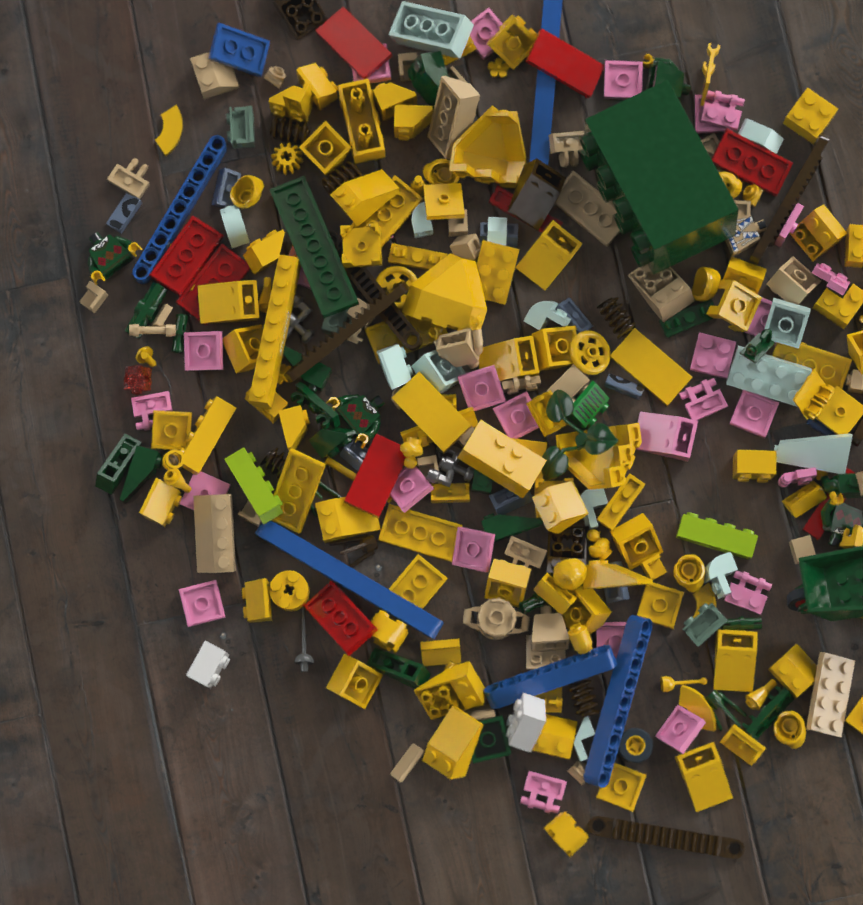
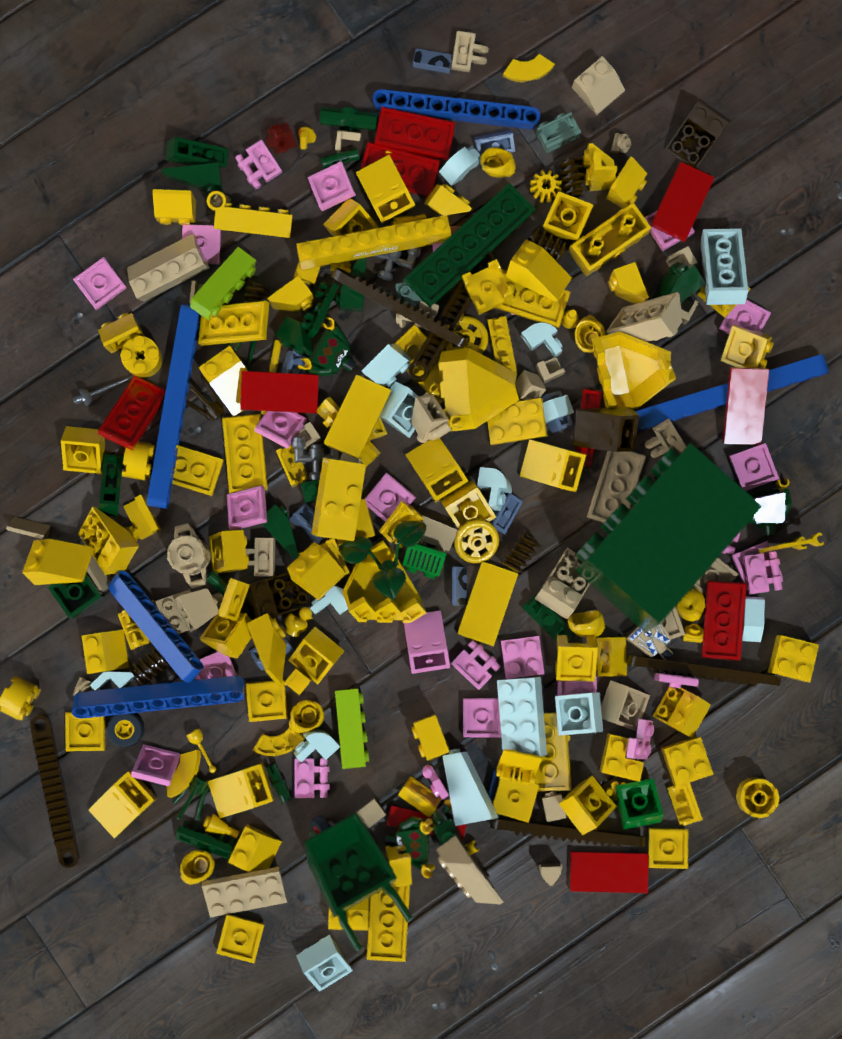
camera: 60 degrees right, 5 degrees up
(94, 297) = (342, 67): tan panel -> none
(109, 255) = (385, 63): dark green torso -> none
(135, 330) = (323, 116): tan bar -> none
(170, 429) = (246, 187): yellow tile -> none
(174, 478) = (198, 208): yellow cone -> none
(208, 665) = (43, 311): white brick -> none
(239, 49) = (630, 98): blue tile -> none
(389, 95) = (643, 255): yellow slope -> none
(411, 449) = (313, 413): yellow animal -> none
(443, 201) = (563, 346): yellow plate -> none
(482, 388) = (401, 454): bright pink plate -> none
(498, 68) = (716, 346): yellow plant -> none
(526, 722) = (103, 620): white brick -> none
(528, 383) = (423, 495): tan hinge -> none
(545, 786) = (56, 661): bright pink plate -> none
(569, 574) = (254, 605): yellow hair -> none
(580, 638) = (199, 639): yellow brick -> none
(621, 502) = (345, 626): yellow plate -> none
(704, 624) = (262, 749): sand green hinge -> none
(742, 745) = (166, 829): yellow hinge -> none
(758, 346) = (543, 696): dark green hinge -> none

